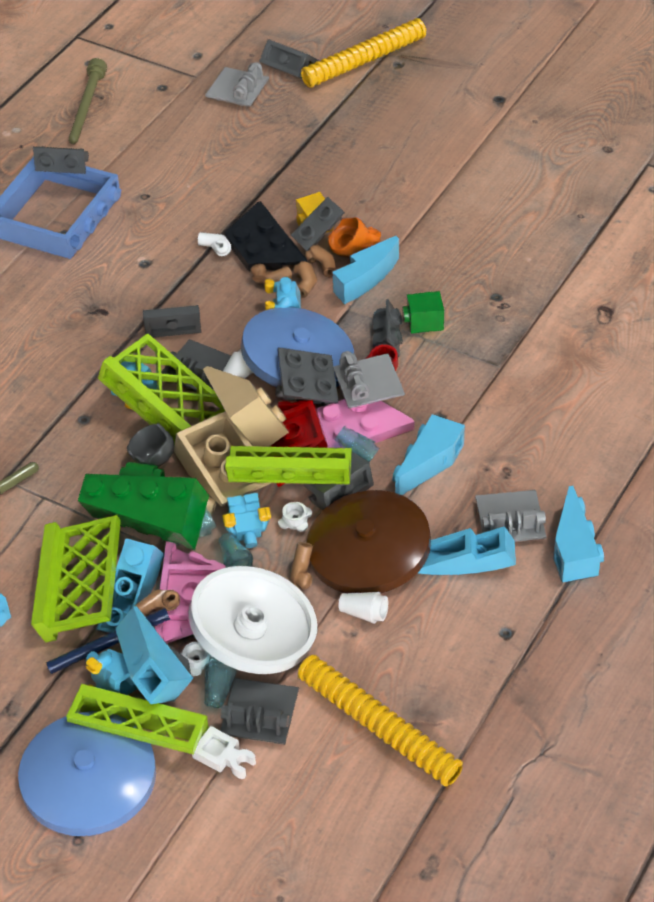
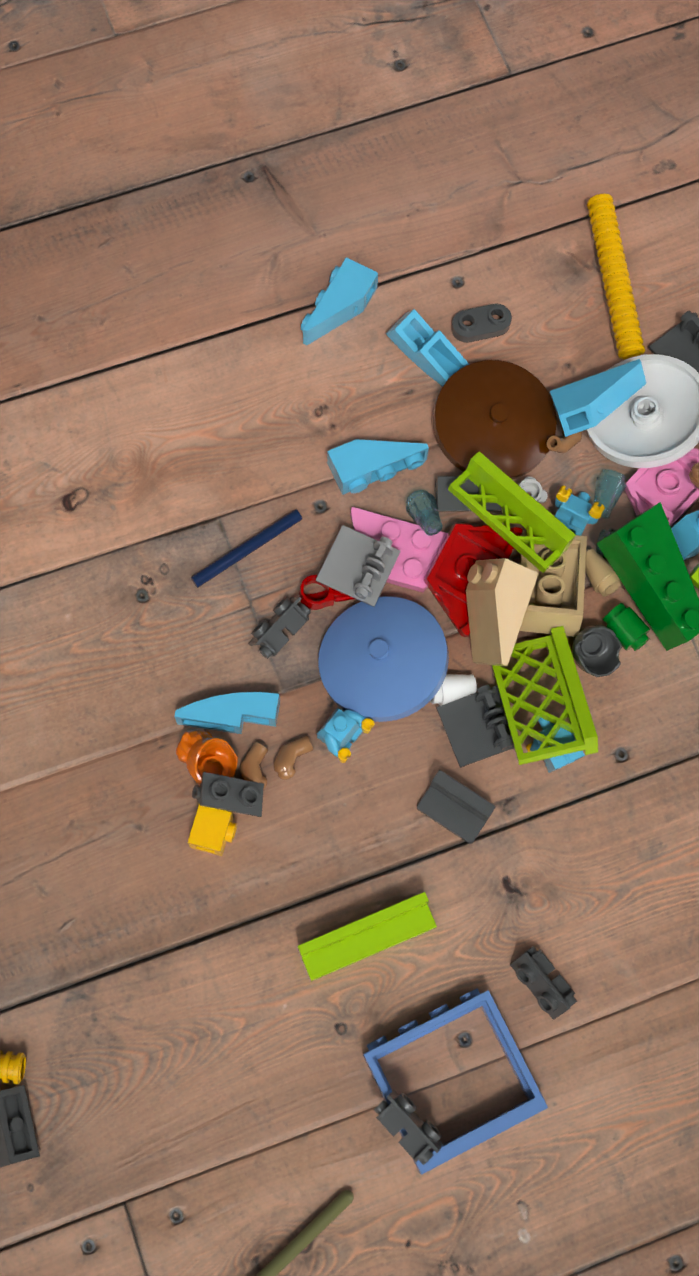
camera: 145 degrees left, 25 degrees up
(47, 276) = (552, 996): none -> dark grey hinge
(169, 232) = (367, 936): none -> lime fence
(217, 241) = (330, 877): white arm -> none
(238, 85) = (101, 1130): light grey hinge -> none
(260, 274) = (322, 787): medium nougat arm -> none
(261, 240) = (286, 845): black wing -> none
(301, 588) = (595, 397): none -> medium azure slope
(306, 377) = (412, 604): dark grey hinge -> none
(366, 605) = (546, 369): white cone -> none
(424, 312) = (231, 615): green brick -> none
(454, 607) = (483, 323): none -> dark grey plate
(458, 360) = (246, 548): none -> dark blue bar
(515, 511) = (362, 362): light grey hinge -> none

